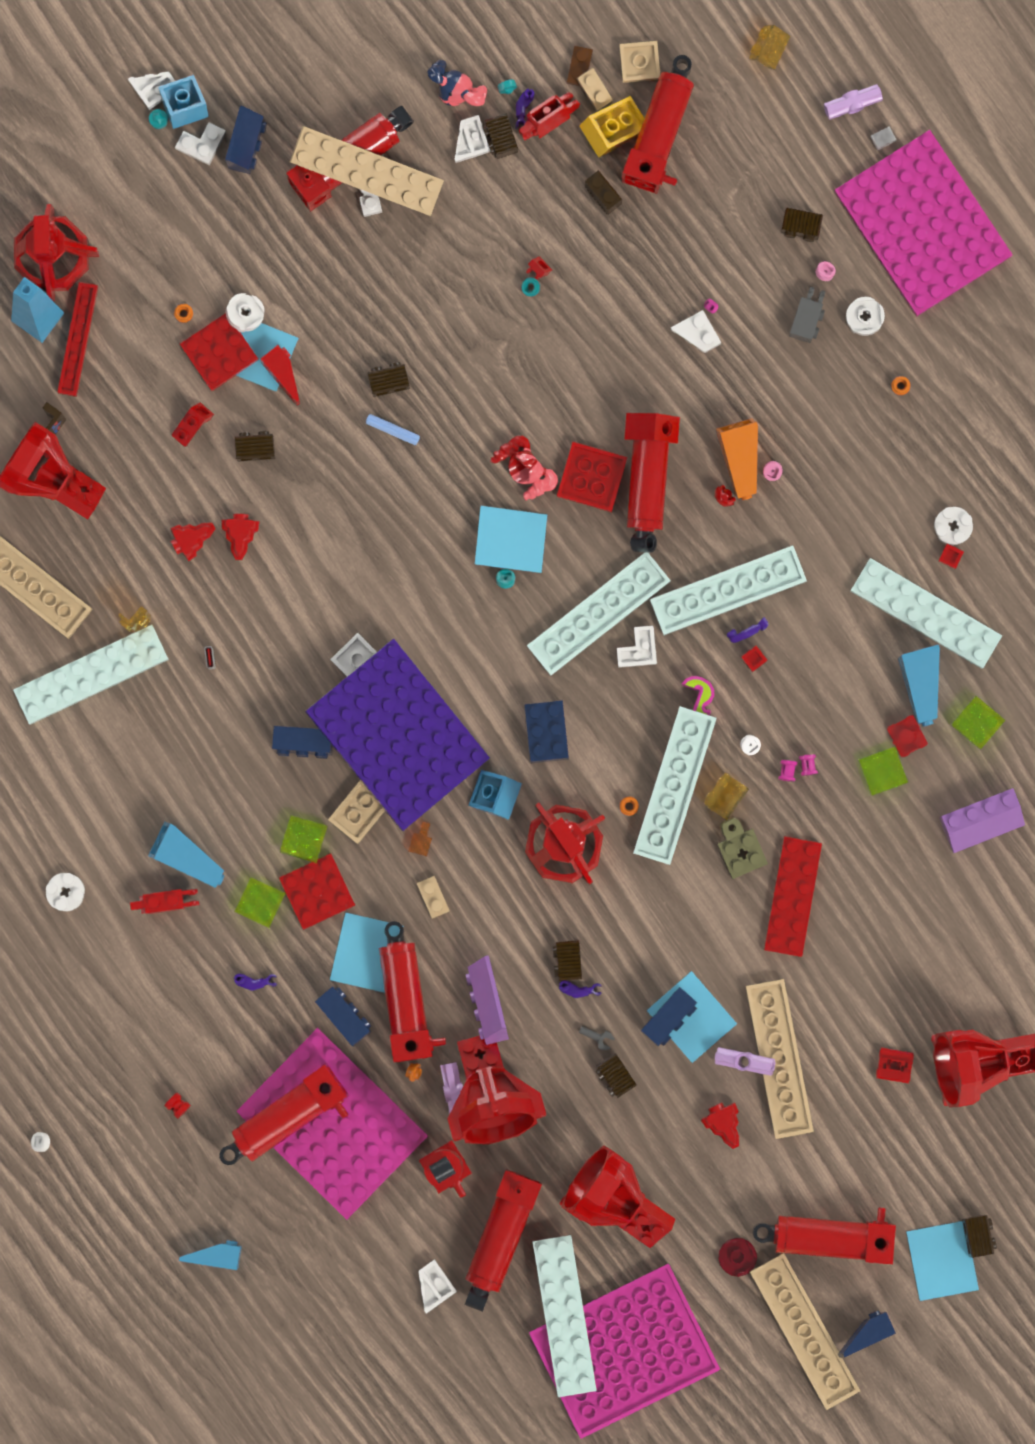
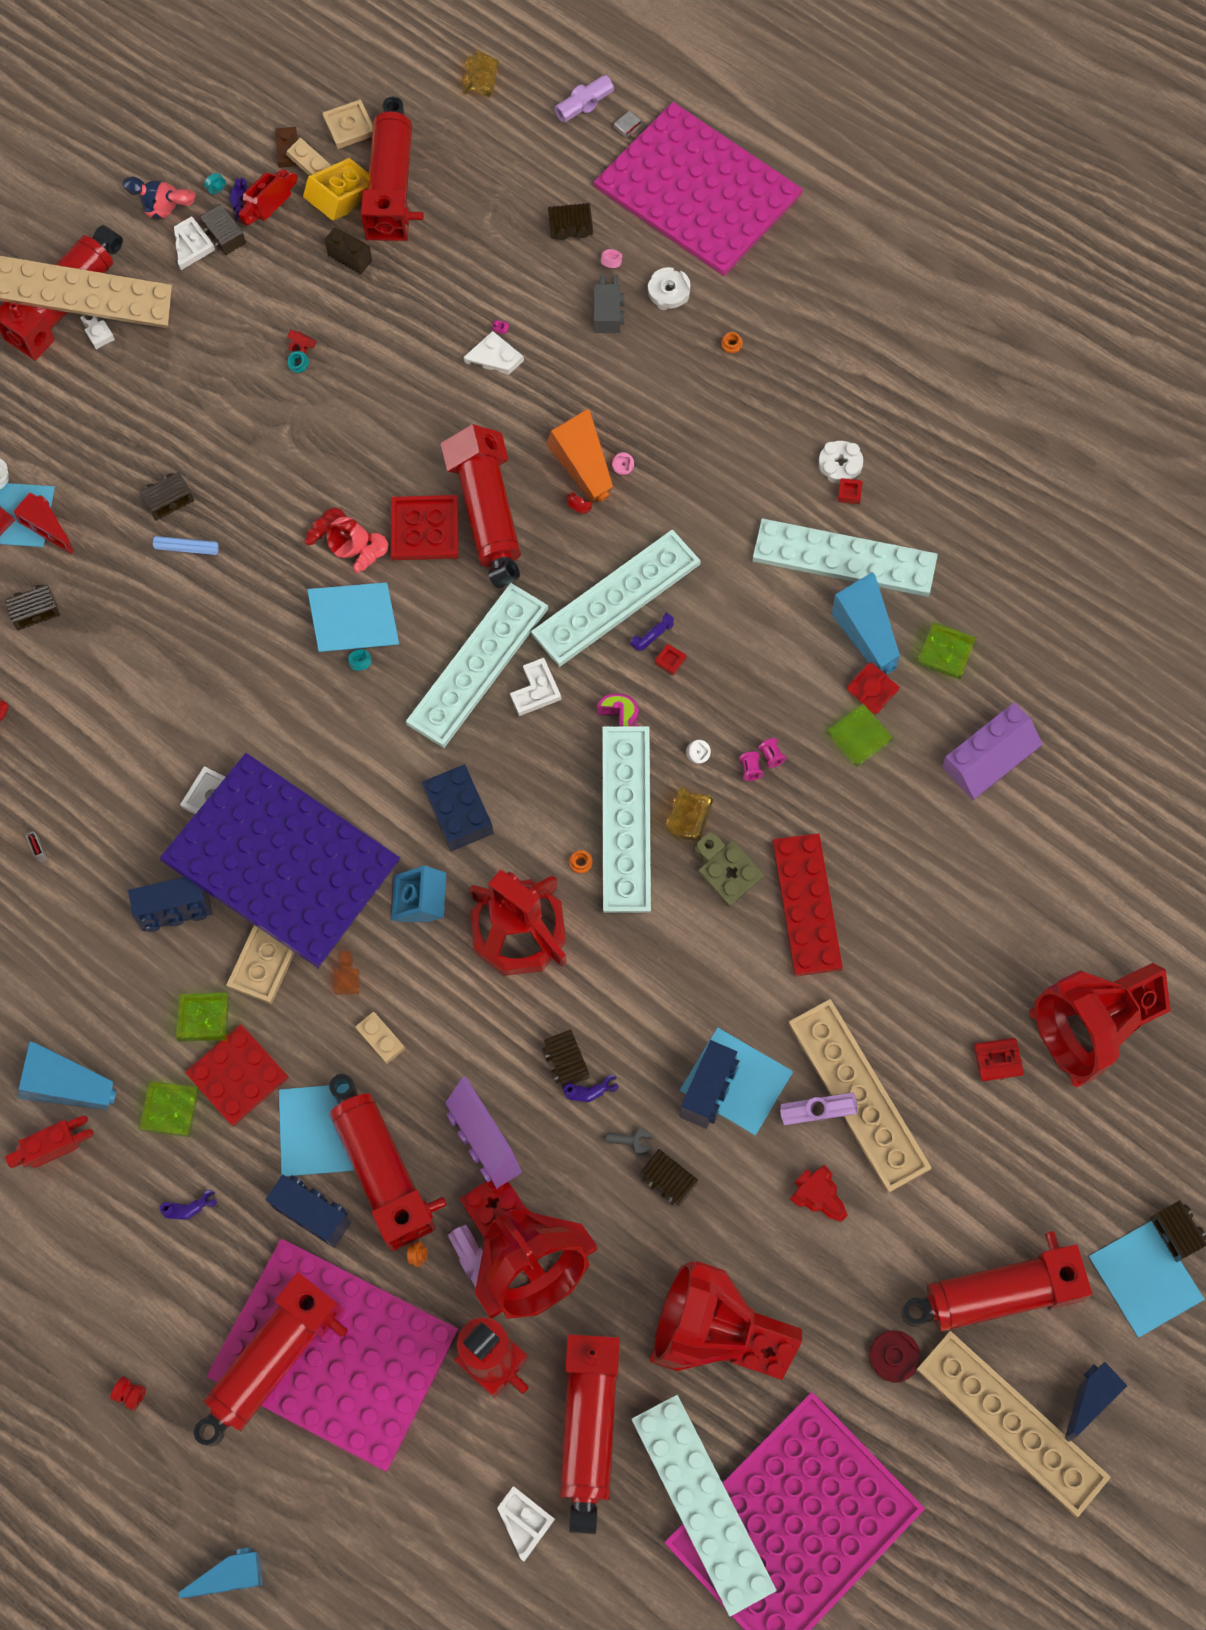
camera: 20 degrees left, 15 degrees down
(240, 533) = (37, 701): red rock -> none

